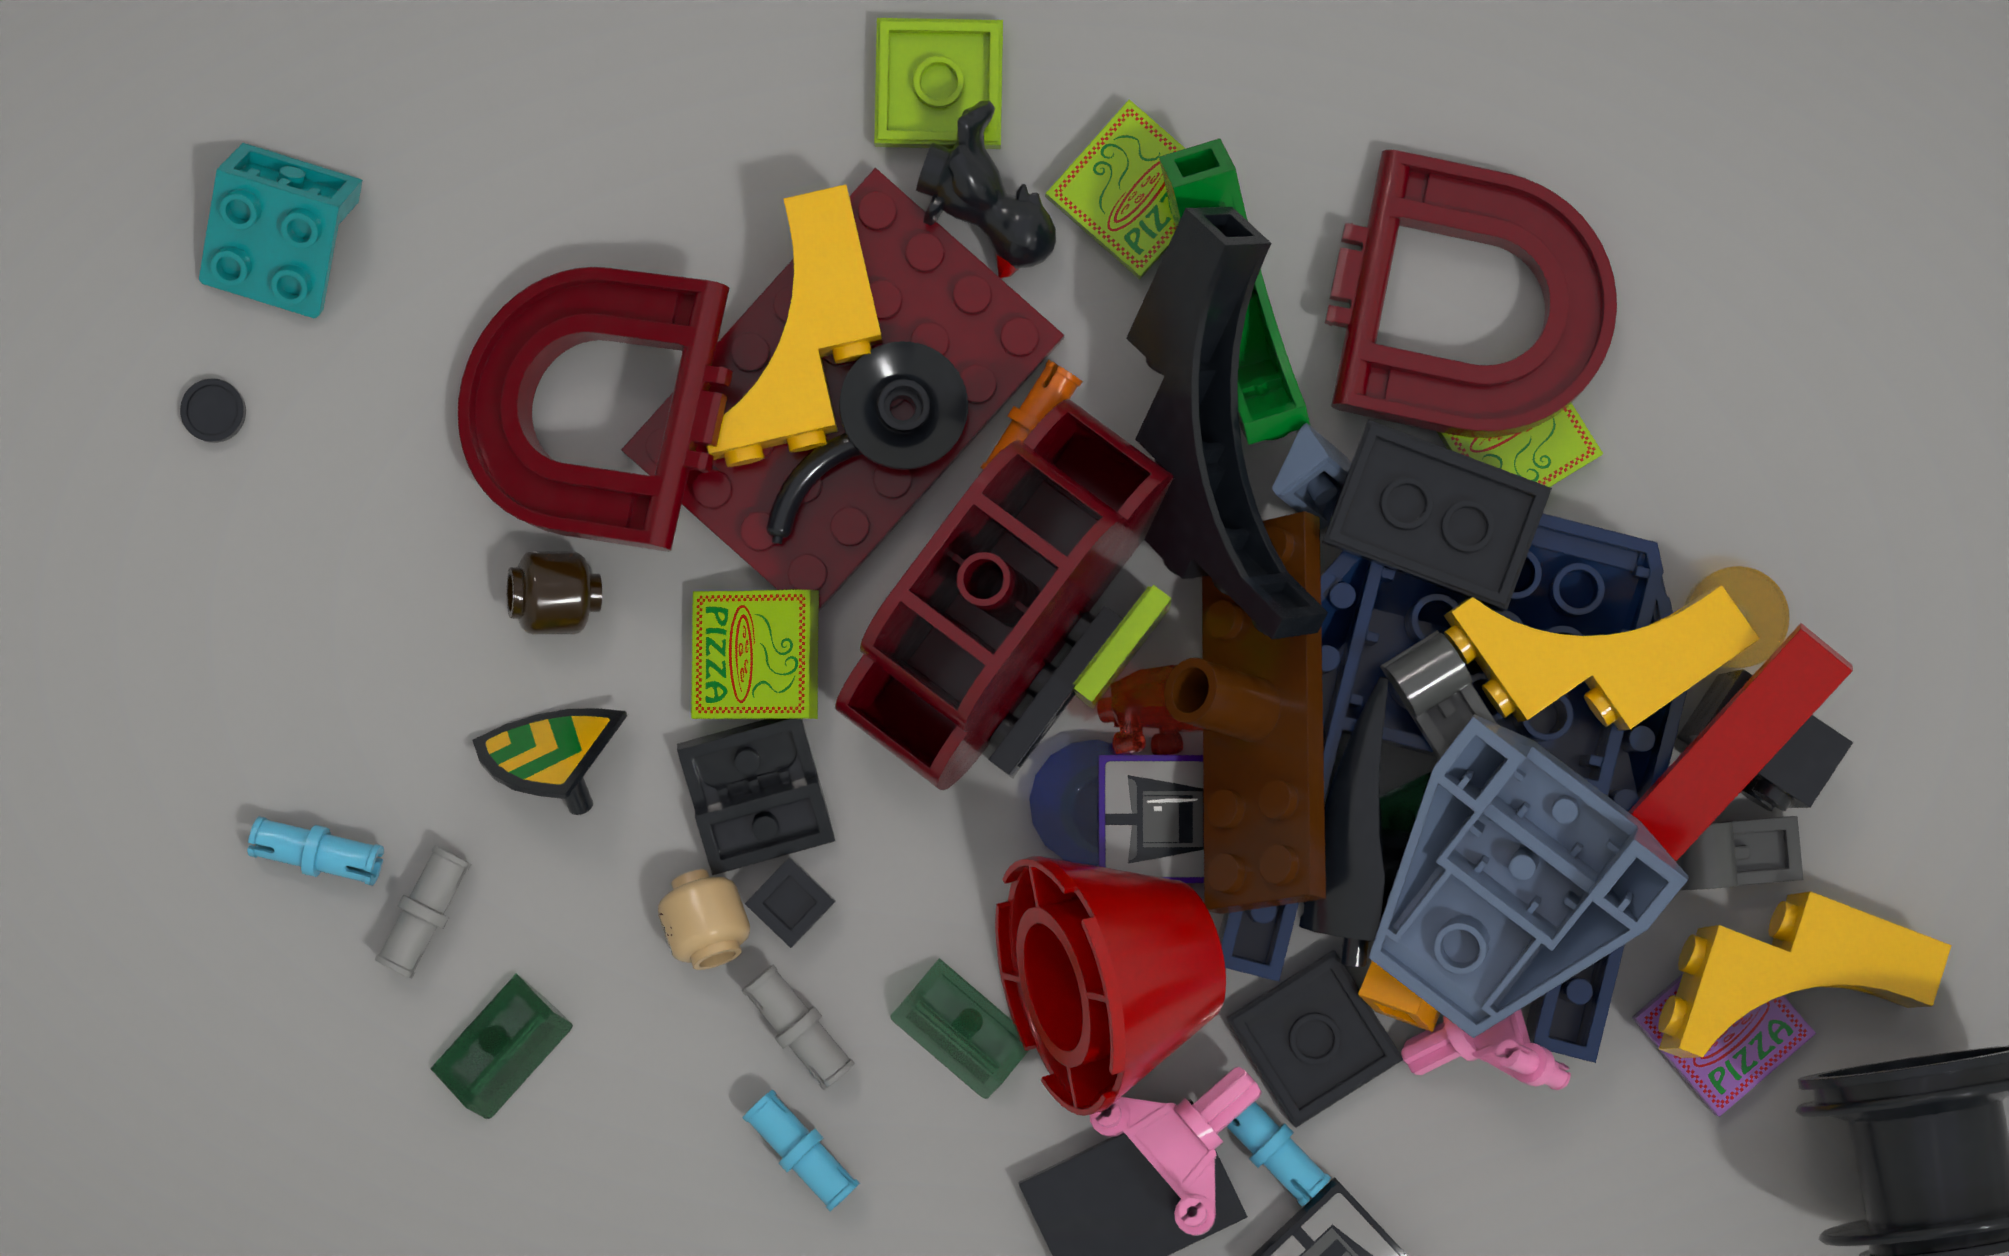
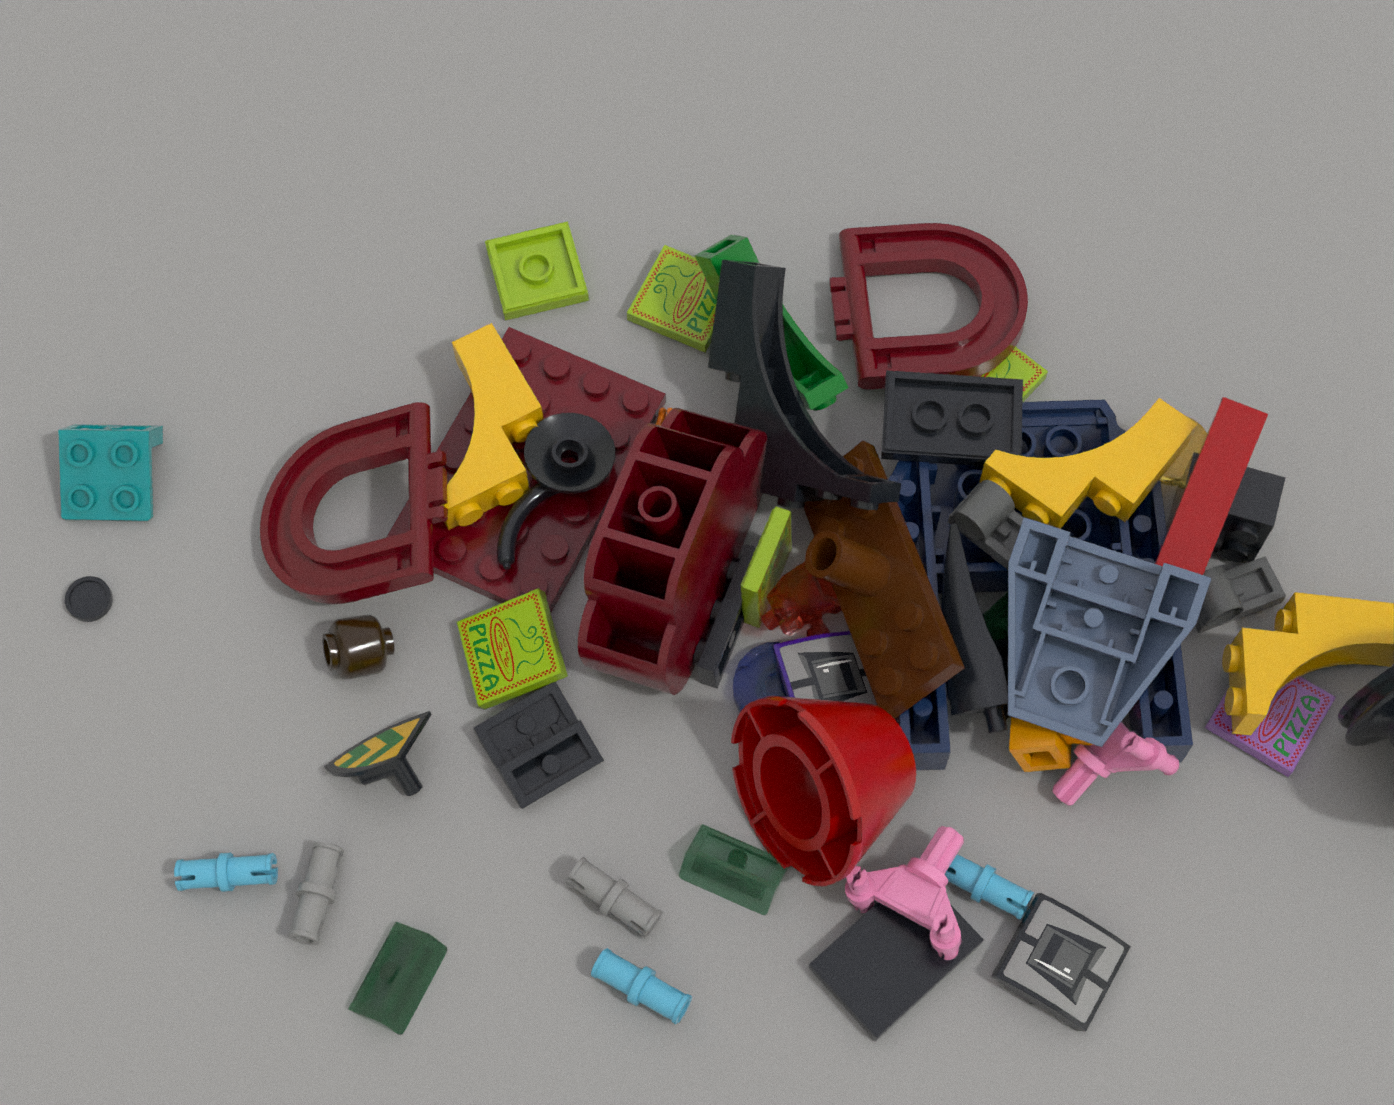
camera: 15 degrees left, 20 degrees down
(703, 920) = (524, 839): tan head -> none
(790, 902) = (583, 811): black plate -> none
(970, 189) = (575, 319): black animal -> none
(1312, 475) = (860, 419): sand blue slope -> none
(1314, 1038) = (988, 802): black tile -> none

